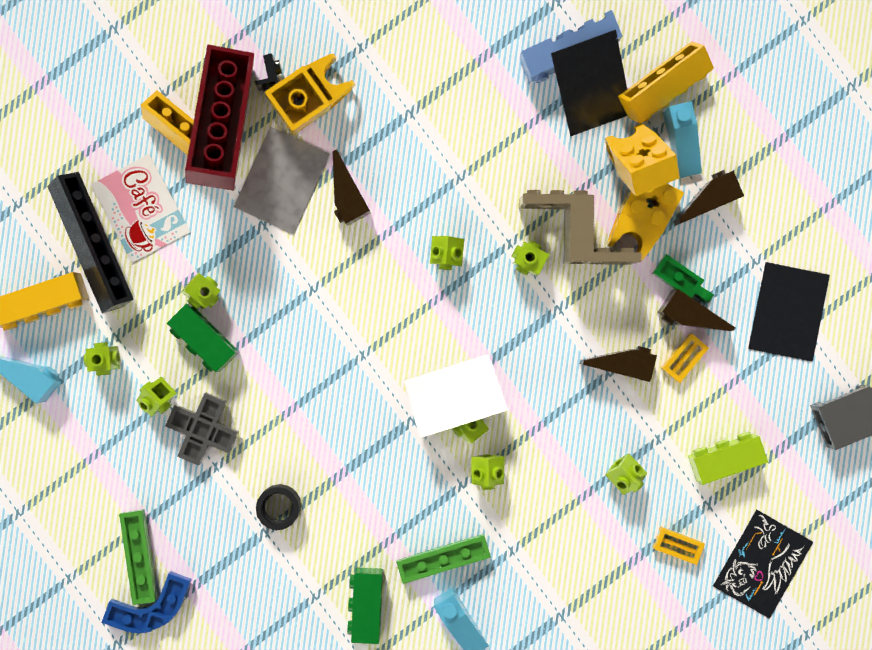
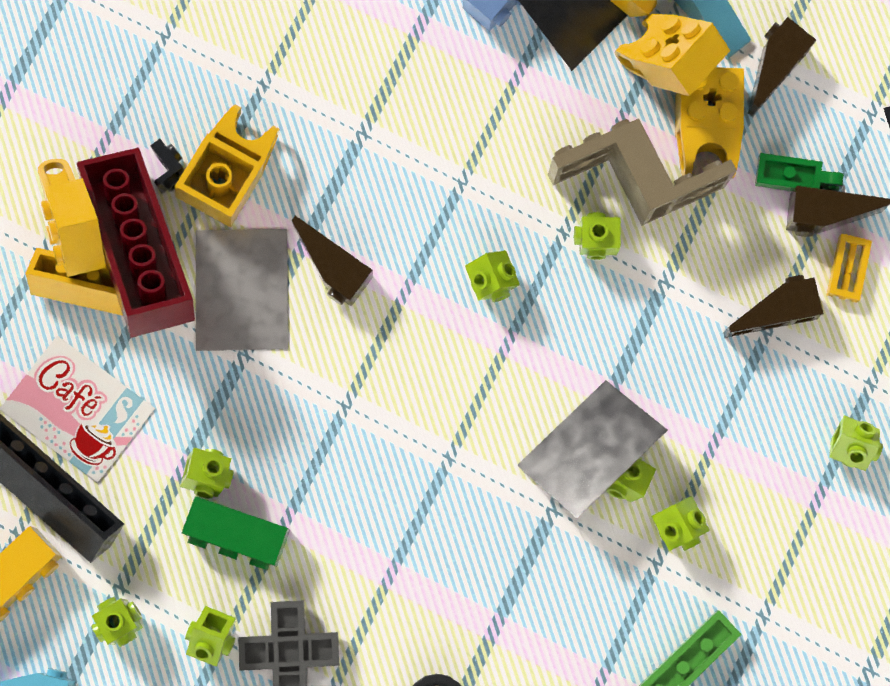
camera: 30 degrees left, 10 degrees down
(183, 81) = (71, 220): none -> yellow brick

